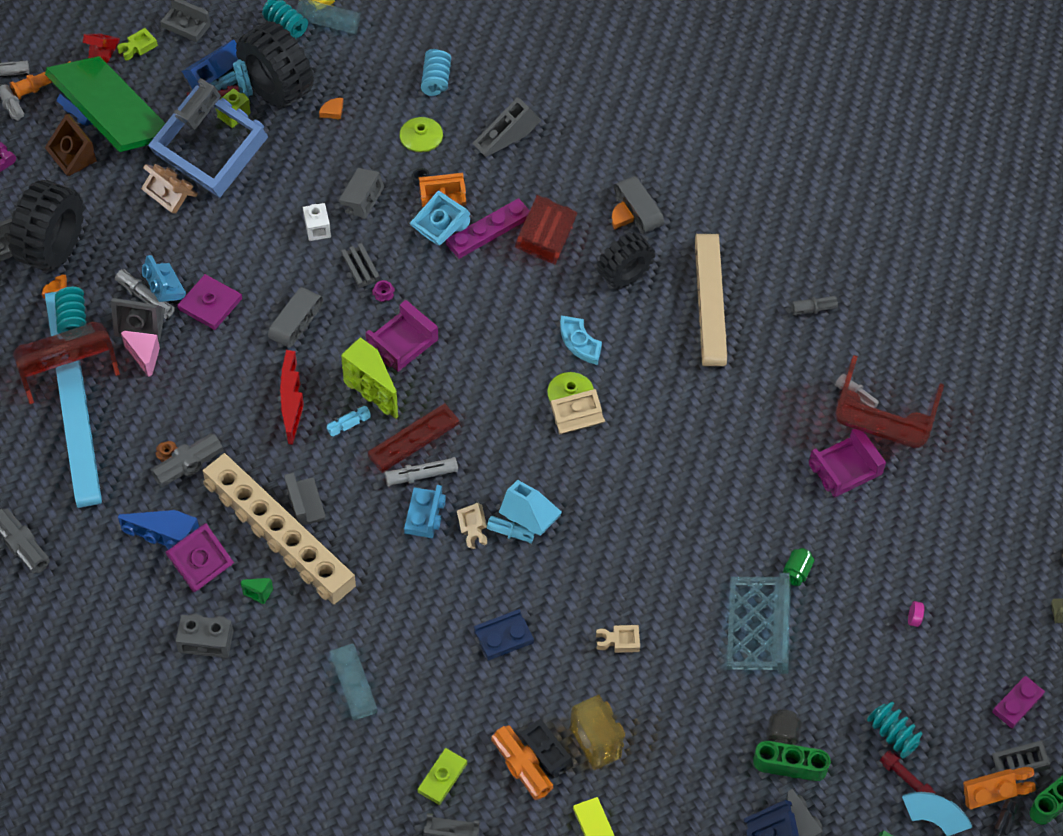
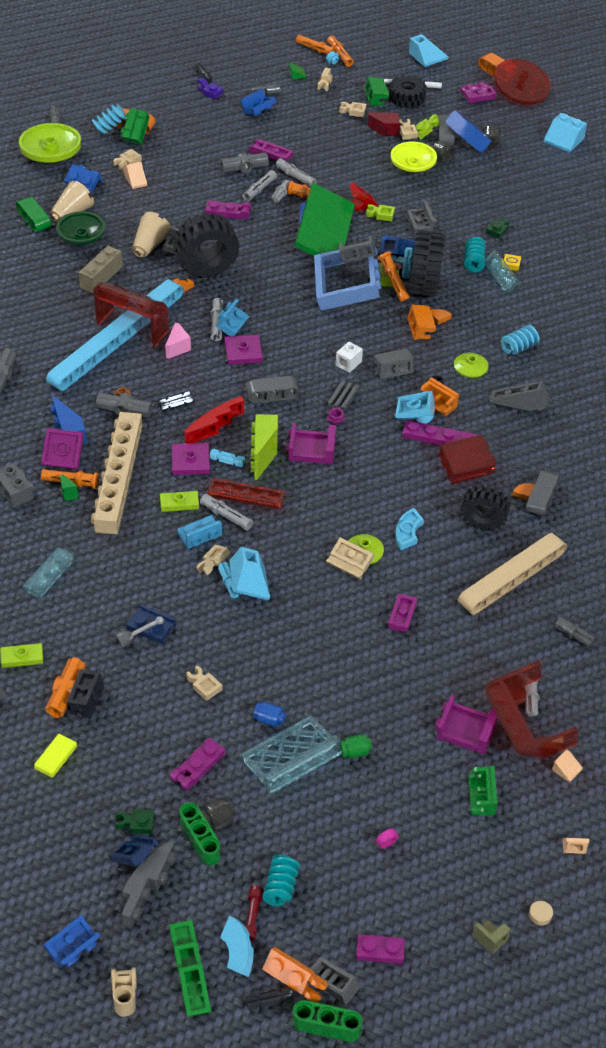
camera: 50 degrees right, 10 degrees down
(69, 309) = (164, 289): teal piece -> none
(70, 147) = (280, 230): reddish brown slope -> none
(136, 317) = (195, 324): dark grey slope -> none
(167, 187) = (298, 281): medium nougat bracket -> none
(223, 410) = (175, 400): none -> axle
(245, 99) = (390, 269): none -> orange pin
(252, 570) = (79, 478): none -> orange pin
(304, 500) = (150, 471): dark grey panel -> none
(318, 453) = (190, 459): none -> magenta plate
(328, 129) = (421, 321): none -> orange hinge
(366, 502) = (179, 501): none -> lime plate
(505, 668) = (126, 637): none -> hinge
(597, 731) = (117, 708): clear yellow piece -> none
(679, 418) = (402, 613): none -> magenta plate
(704, 609) = (269, 714): none -> blue brick
(707, 708) = (198, 764): none -> magenta plate
(731, 803) = (139, 821): none -> dark green plate
(925, 504) = (483, 791): none -> green hinge
(949, 423) = (567, 766): none -> light nougat slope
(1030, 477) = (575, 845): none -> light nougat slope

